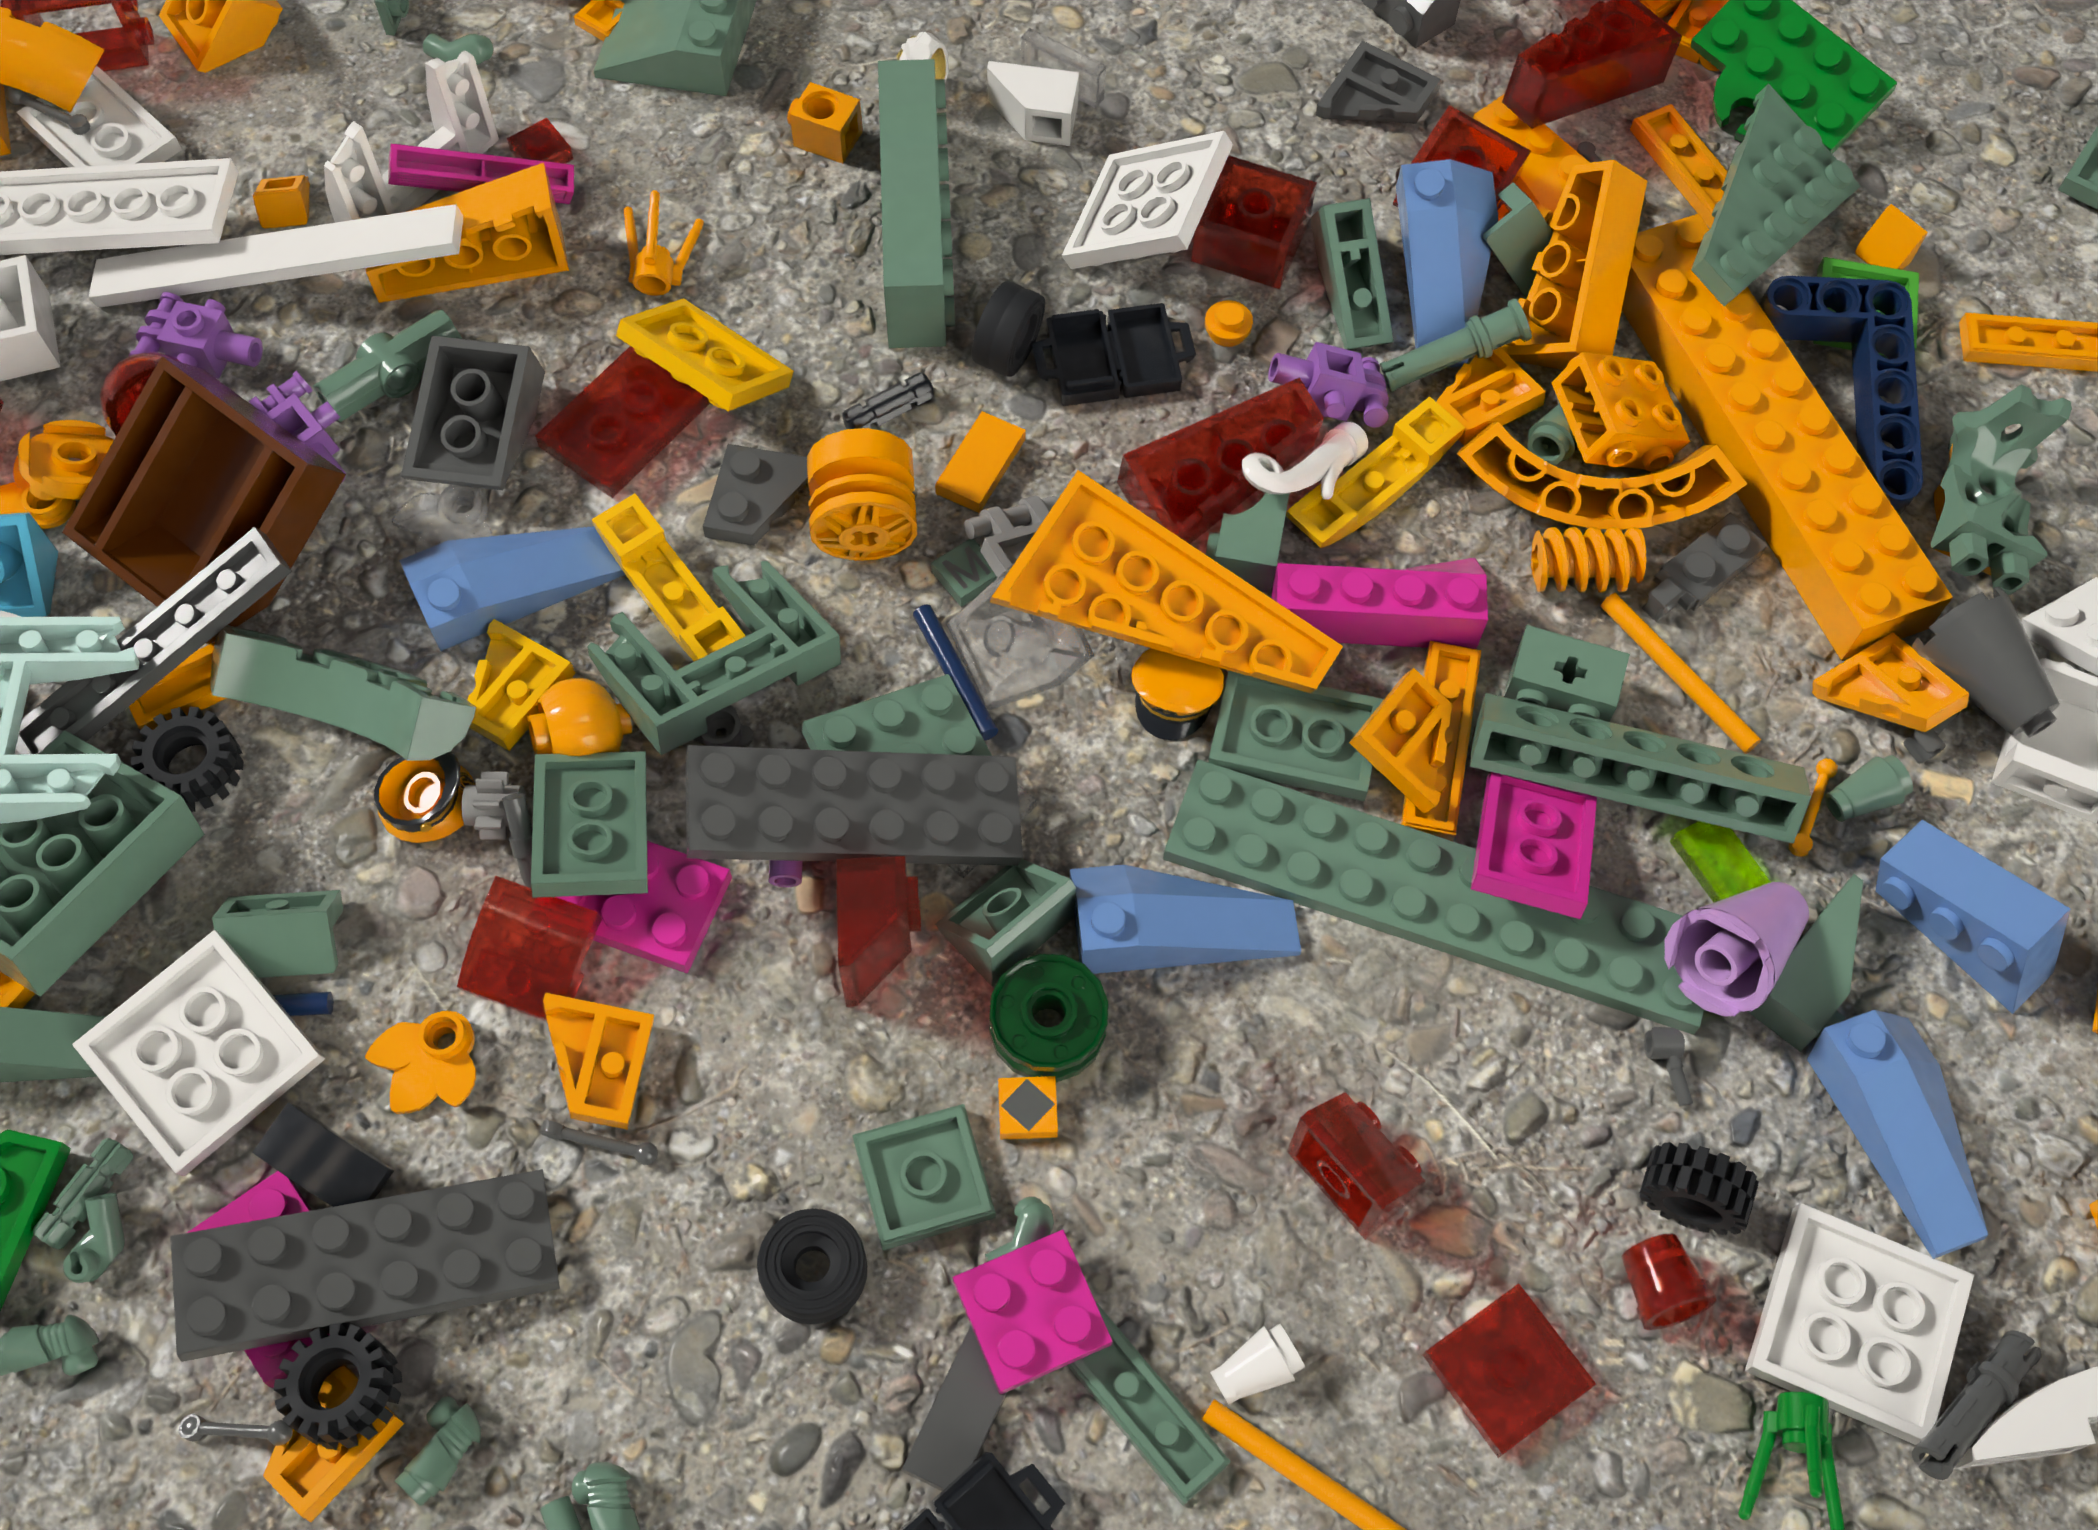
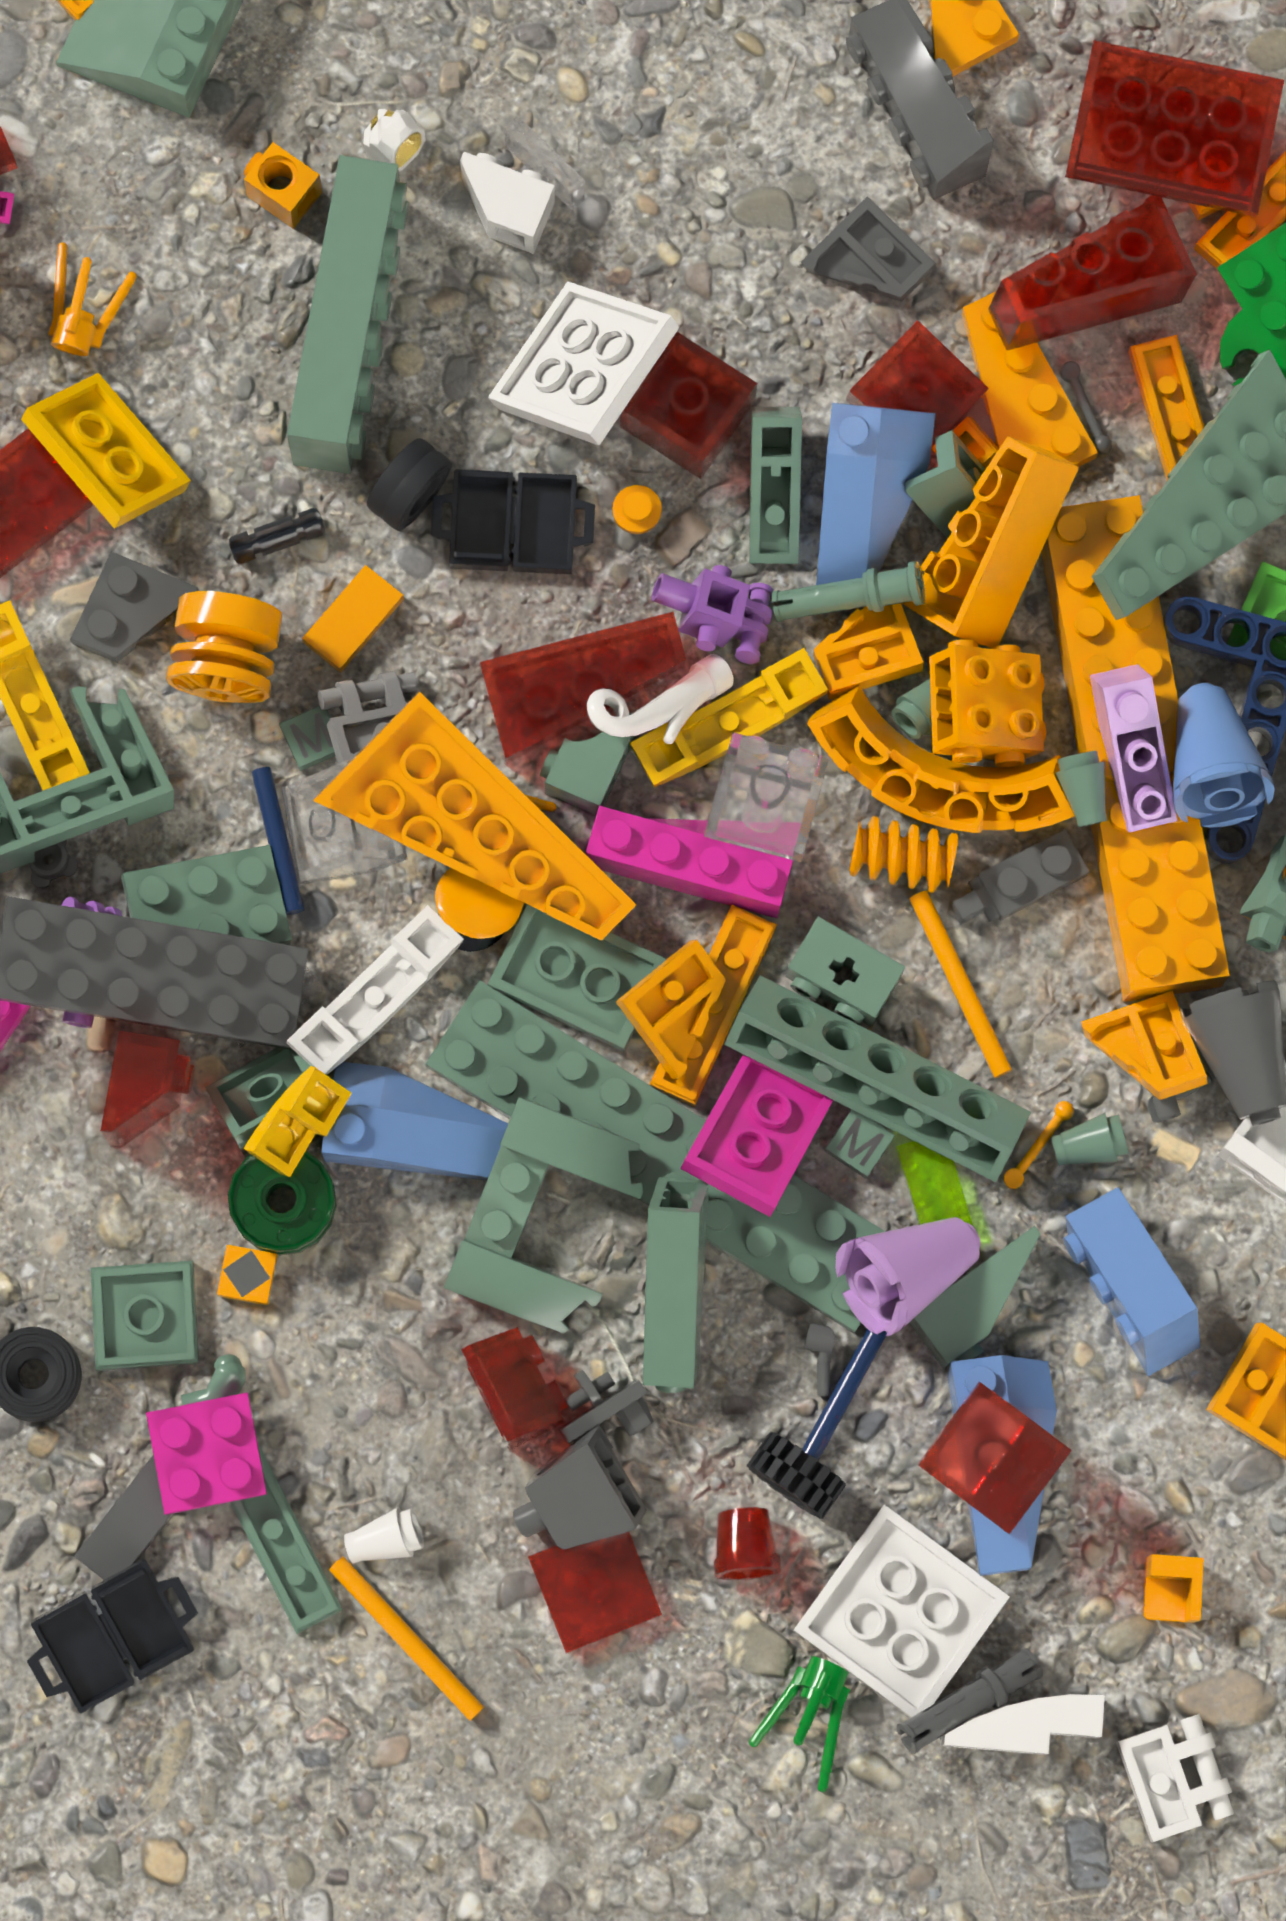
camera: 10 degrees right, 15 degrees up
(1052, 910) = (300, 1113): none -> yellow slope
(1097, 790) = (376, 993): none -> white slope
(1284, 1039) = (485, 1259): none -> sand green wedge
(1440, 525) = (766, 797): none -> clear slope
(1447, 1192) = (625, 1403): none -> dark grey hips
(1468, 1265) = (580, 1495): none -> dark grey torso
(1503, 1012) = (674, 1283): none -> sand green slope
(1634, 840) = (859, 1143): none -> sand green tile
(1710, 1082) = (843, 1393): none -> dark blue bar
(1750, 451) = (1084, 786): none -> sand green cone
(1787, 402) = (1134, 745): none -> lavender slope
(1875, 402) = (1216, 761): none -> medium blue cone
(1922, 1114) = (994, 1457): none -> clear red slope

